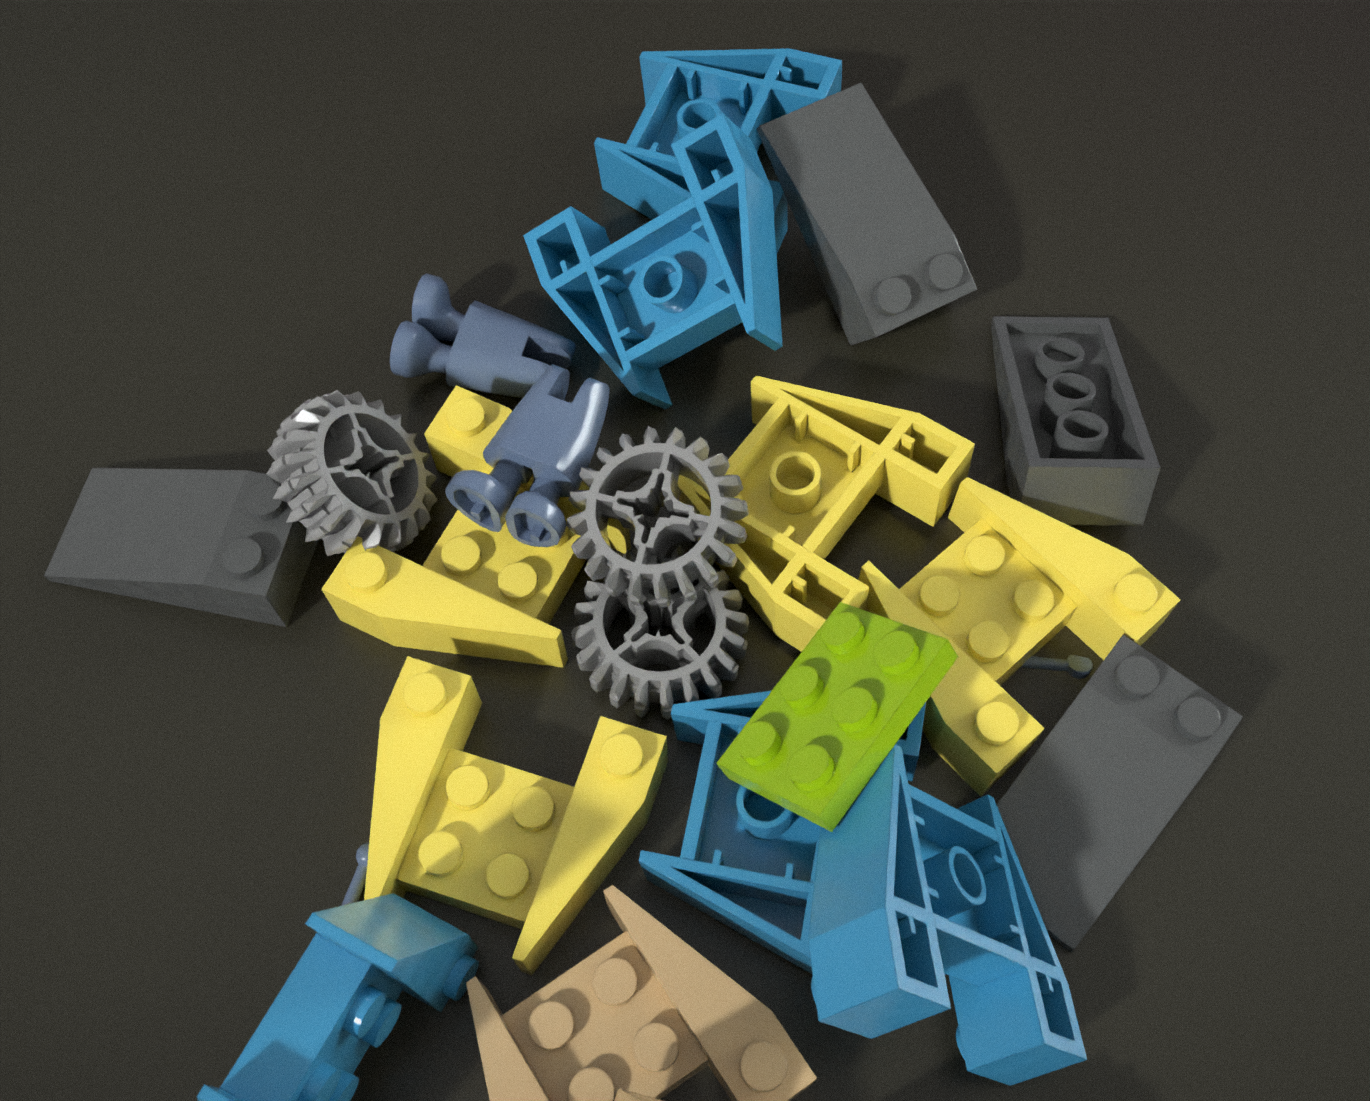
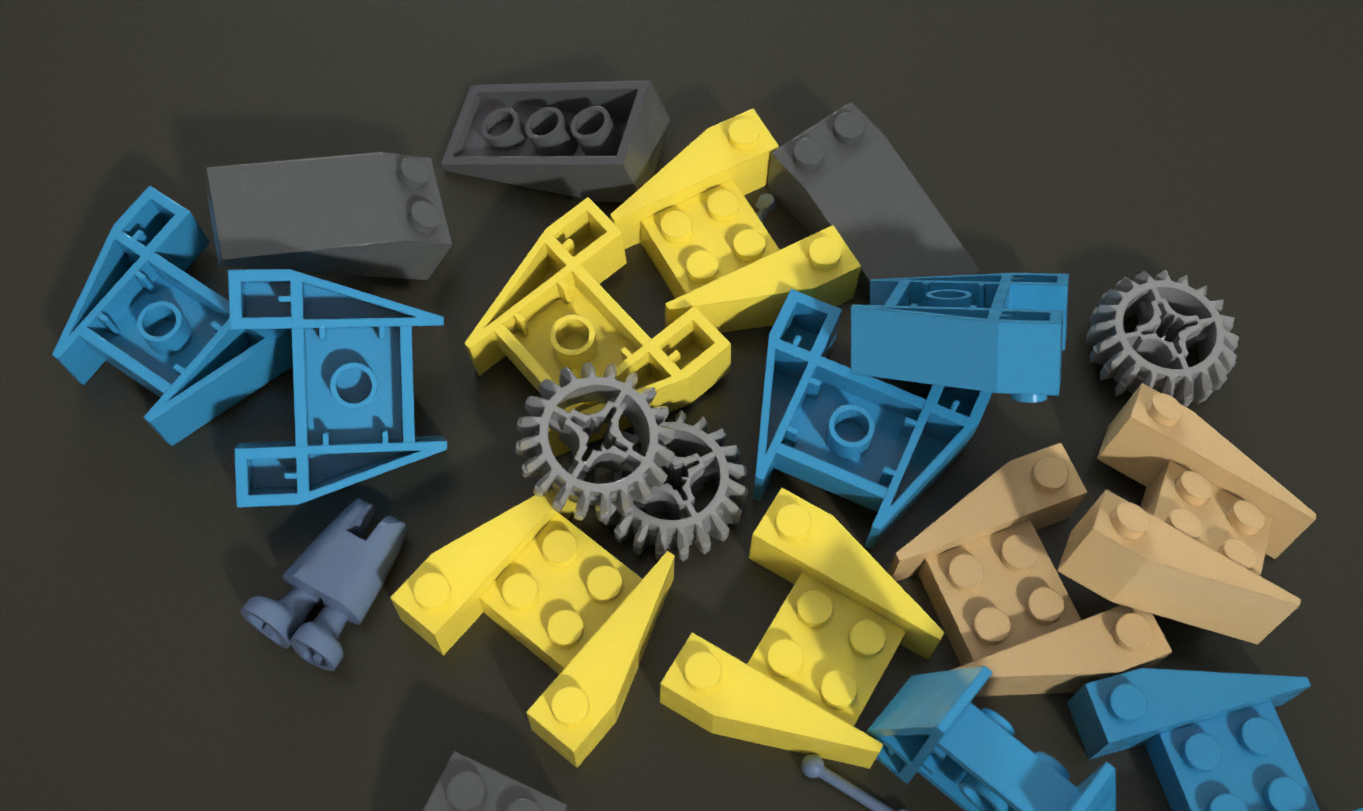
camera: 80 degrees left, 0 degrees up
(351, 474) = (460, 708): light grey gear -> none
(539, 439) = (489, 519): sand blue piece -> none
(837, 713) = (808, 345): lime plate -> none

